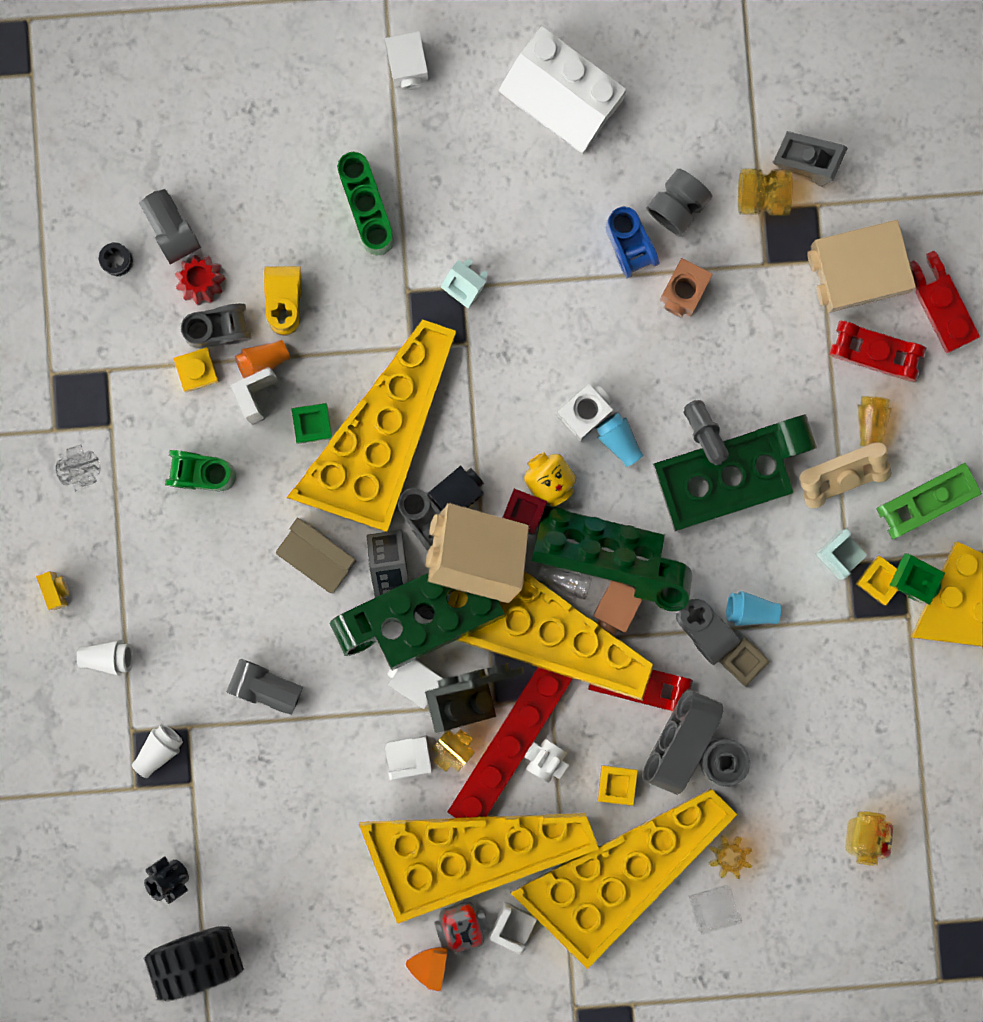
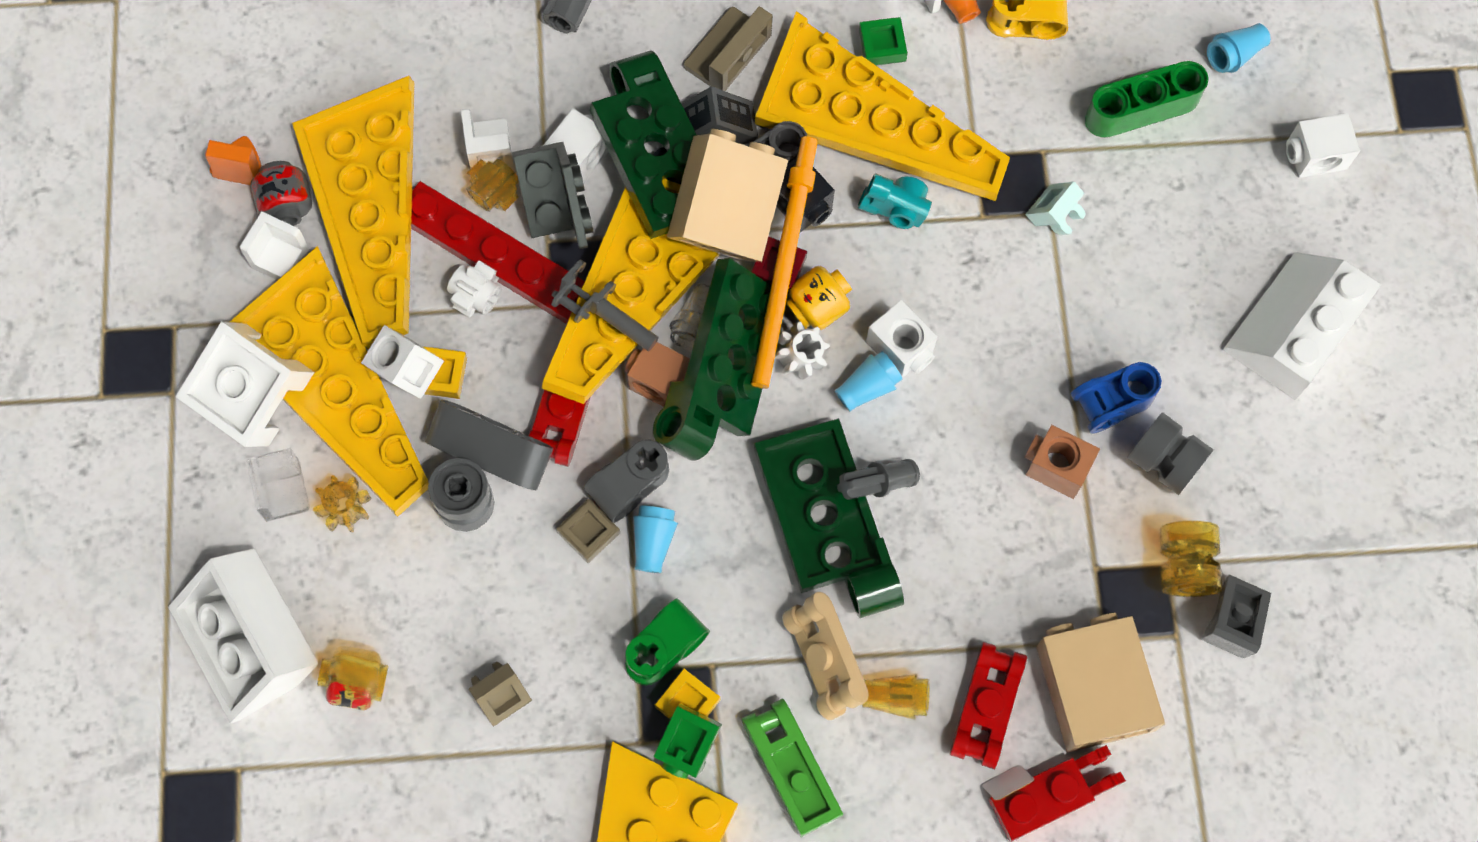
camera: 90 degrees right, 15 degrees down
(315, 125) = (1235, 48): none -> medium azure cone
(457, 492) = (801, 183): none -> light orange bar
(462, 408) = (901, 202): none -> teal plate
(577, 652) = (599, 304): none -> dark grey piece
(602, 486) = (803, 340): none -> white gear
(617, 814) = (402, 361): none -> white brick
(640, 943) = (241, 384): none -> white panel
(831, 593) = (669, 637): none -> green piece
(836, 926) = (242, 633): none -> white slope
(841, 554) = (722, 650): light aqua panel -> none
(879, 725) = (499, 693): none -> dark tan tile
(936, 338) = (1008, 782): none -> white sticker

